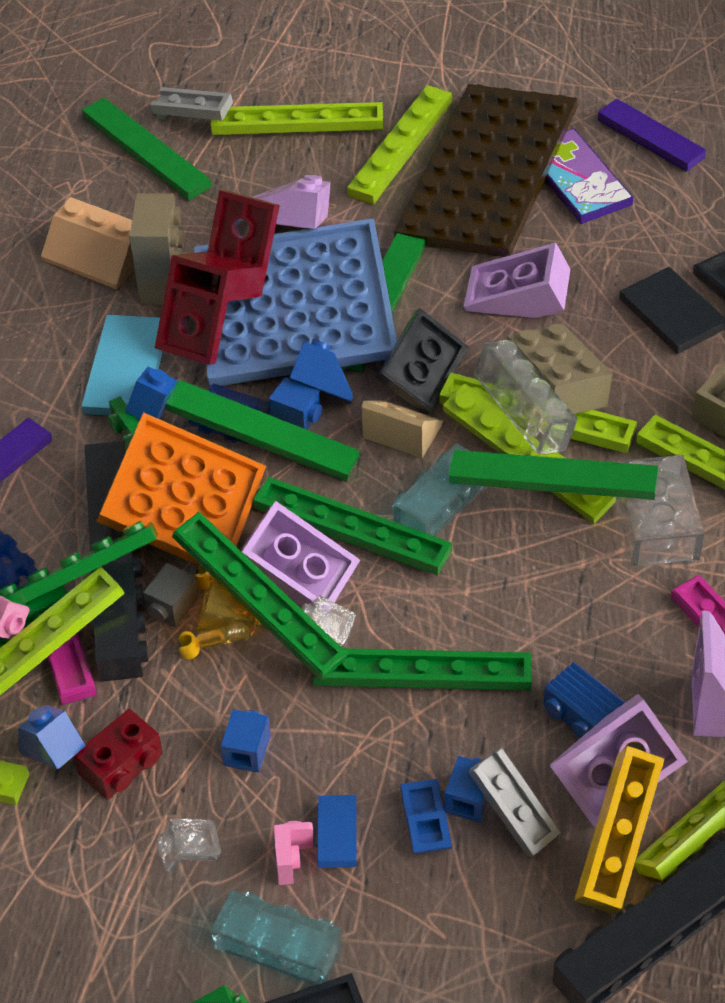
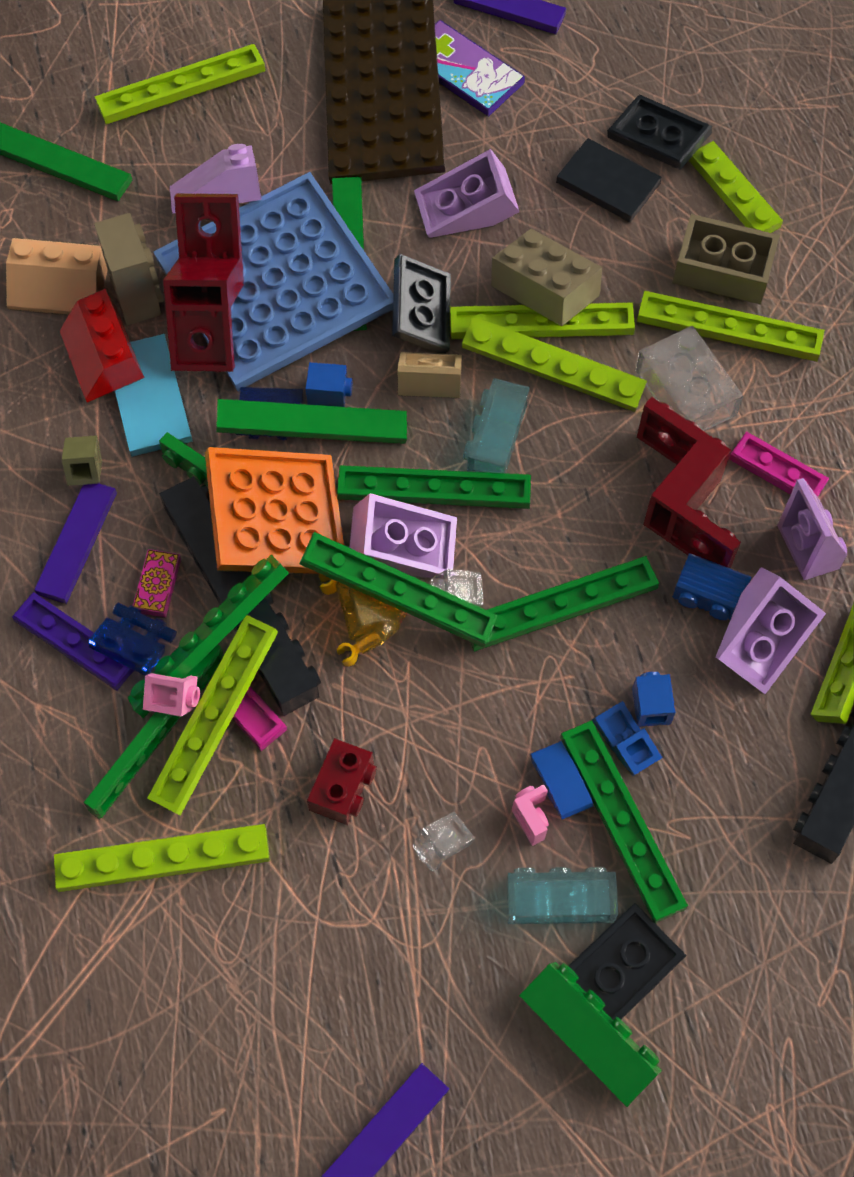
camera: 25 degrees left, 15 degrees up
(32, 398) = (82, 460): none -> olive brick
(45, 525) = (157, 582): none -> tile
(49, 737) = (281, 794): slope -> none
(103, 309) = (99, 346): none -> red slope
(150, 393) = (198, 423): blue slope -> none
(170, 595) = (309, 612): dark grey brick -> none
(191, 104) = (74, 98): light grey hinge -> none
(245, 740) = (445, 726): blue brick -> none
(321, 370) = (339, 345): blue slope -> none
(379, 894) = (624, 822): none -> green plate
(399, 145) = (288, 83): lime plate -> none
(514, 802) = (699, 700): light grey hinge -> none
(525, 397) = (535, 313): clear brick -> none
(554, 474) = (595, 383): green tile -> none
(603, 597) = (697, 472): none -> dark red bracket
(619, 830) = (801, 696): yellow brick -> none

